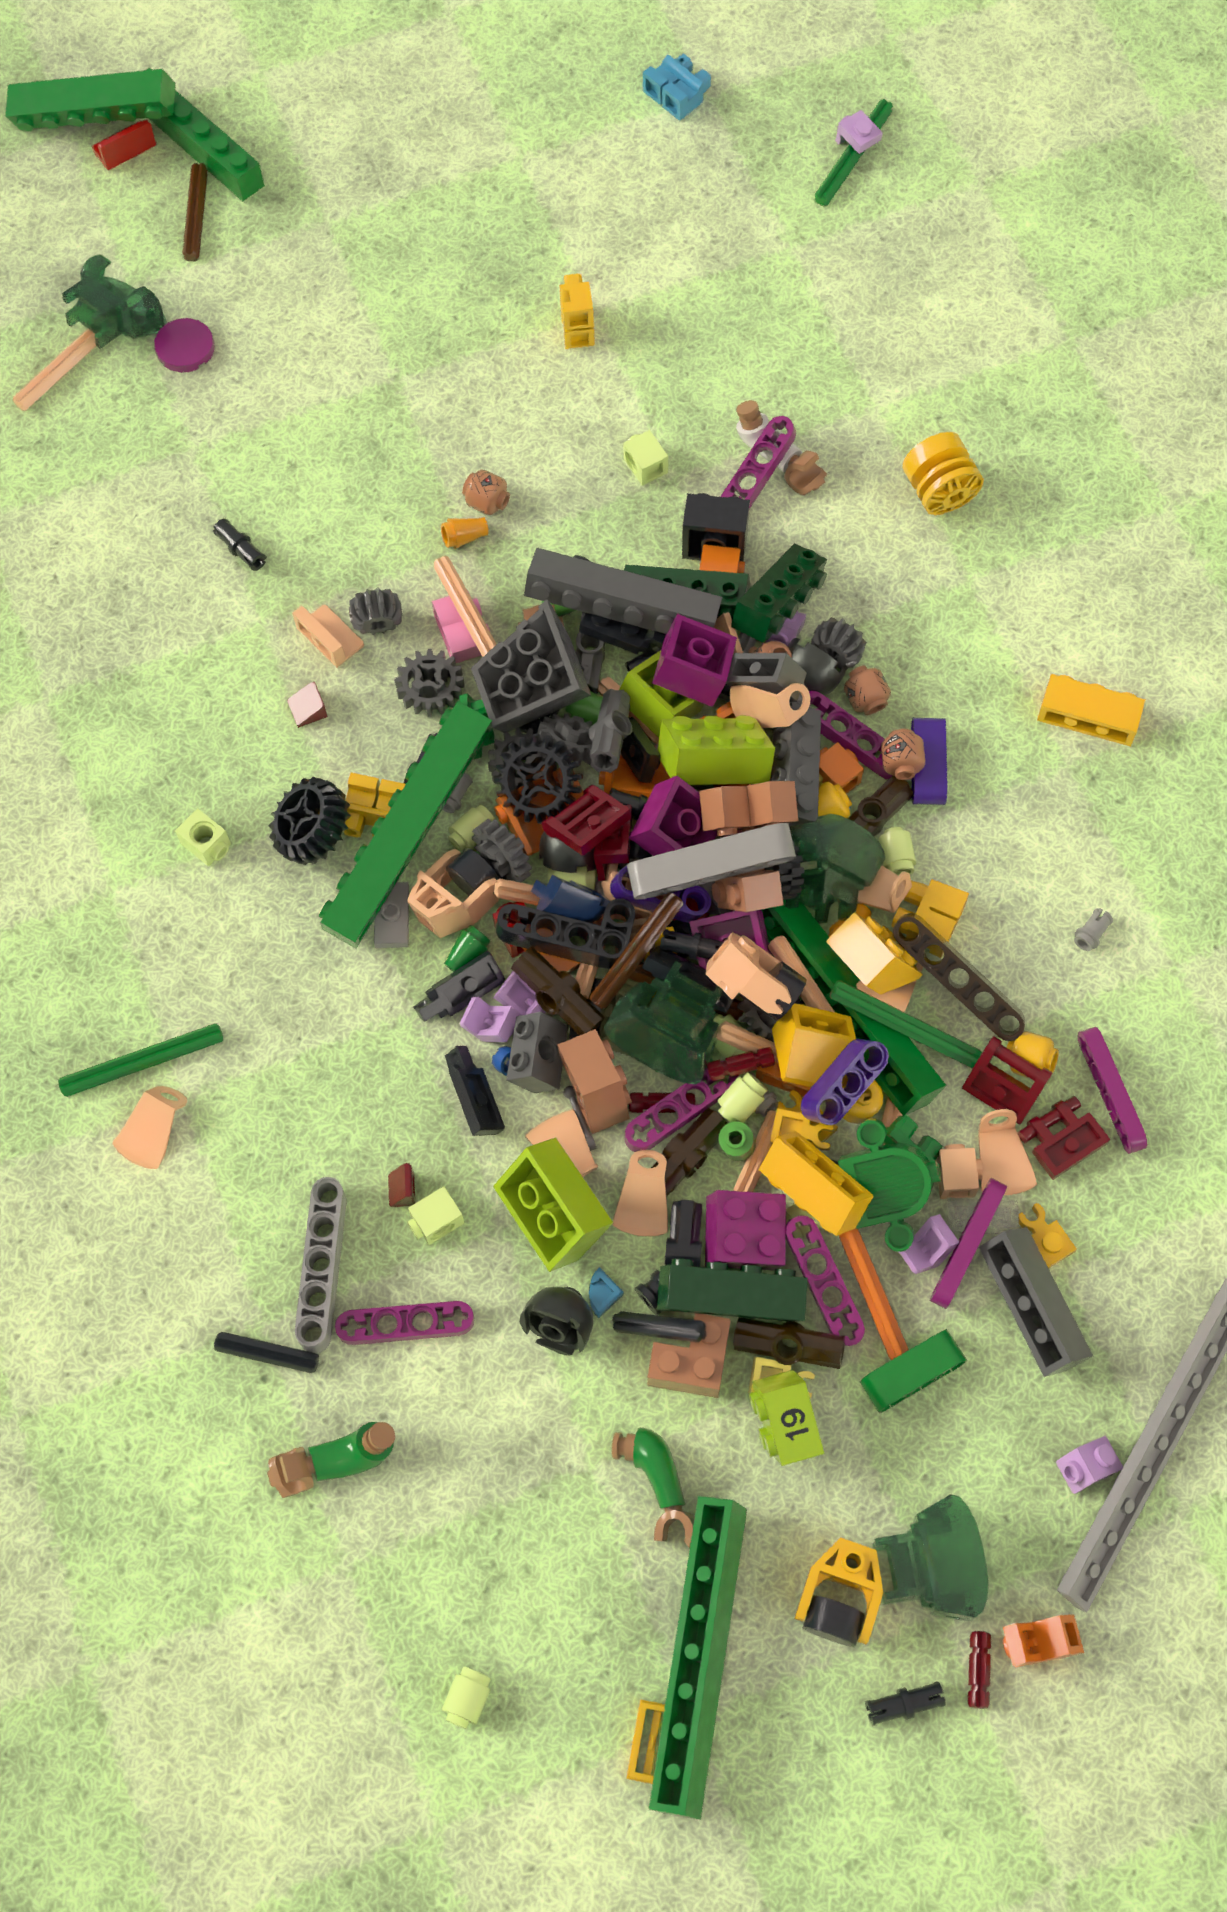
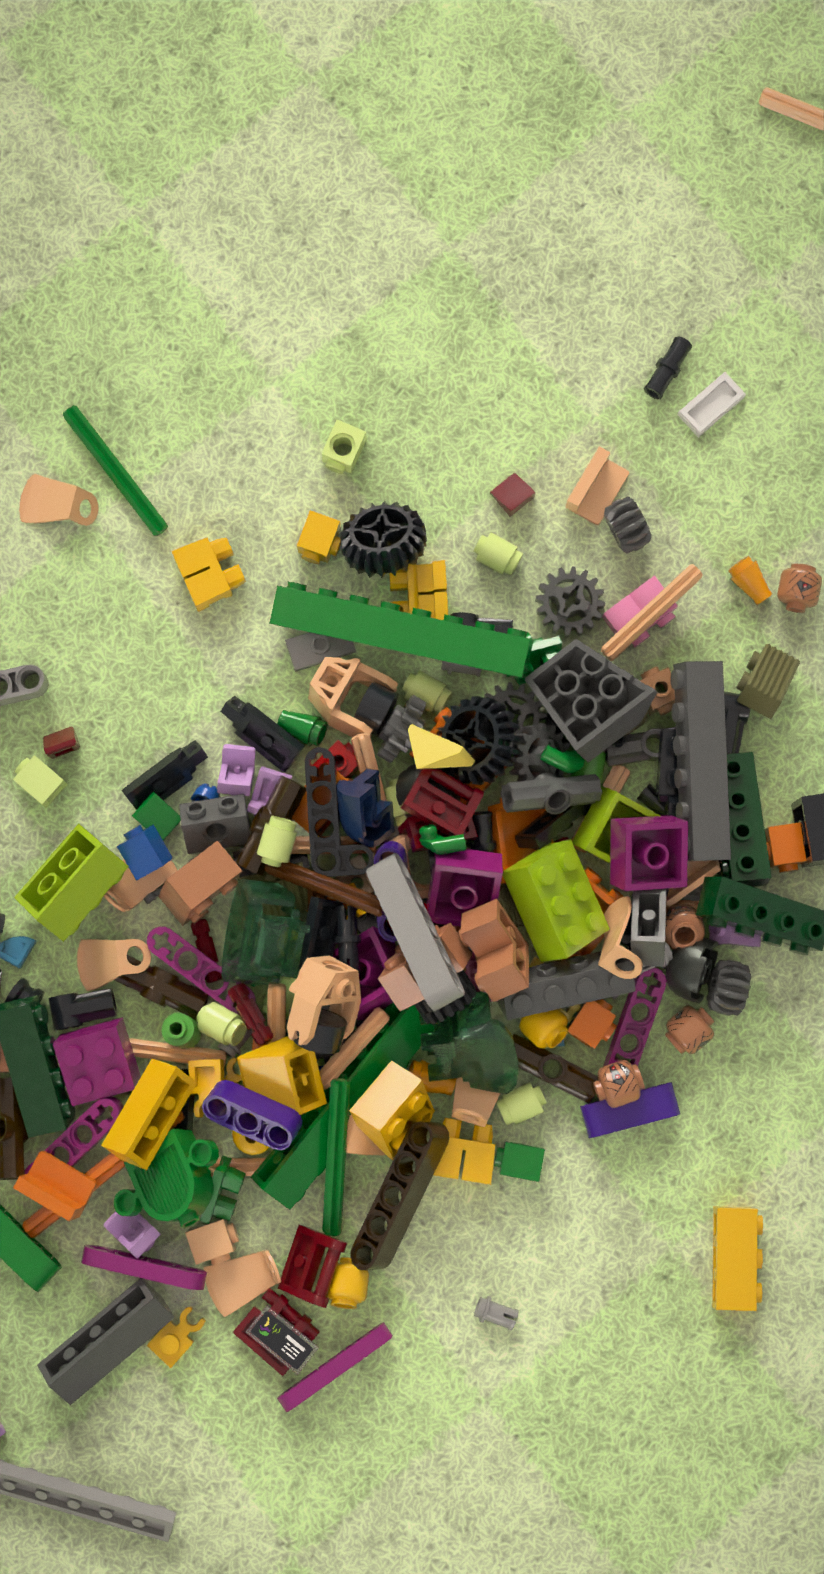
camera: 70 degrees right, 15 degrees up
(265, 992) = (203, 573): none -> yellow hips
(284, 883) = (319, 538): none -> yellow brick
(288, 521) = (711, 404): none -> white tile
(360, 731) = (497, 554): none -> yellowish green brick
(511, 1110) = (159, 813): none -> green slope
(537, 809) = (435, 751): none -> light yellow slope
(543, 1124) = (144, 851): none -> blue brick
(564, 534) = (768, 680): none -> olive brick
(578, 981) = (277, 841): none -> yellowish green brick
(584, 709) = (564, 761): none -> green arm
(631, 827) = (439, 844): none -> green arm
(862, 1302) = (56, 1186): none -> orange panel
(953, 863) = (520, 1161): none -> green brick
(1074, 1127) = (282, 1339): none -> tile

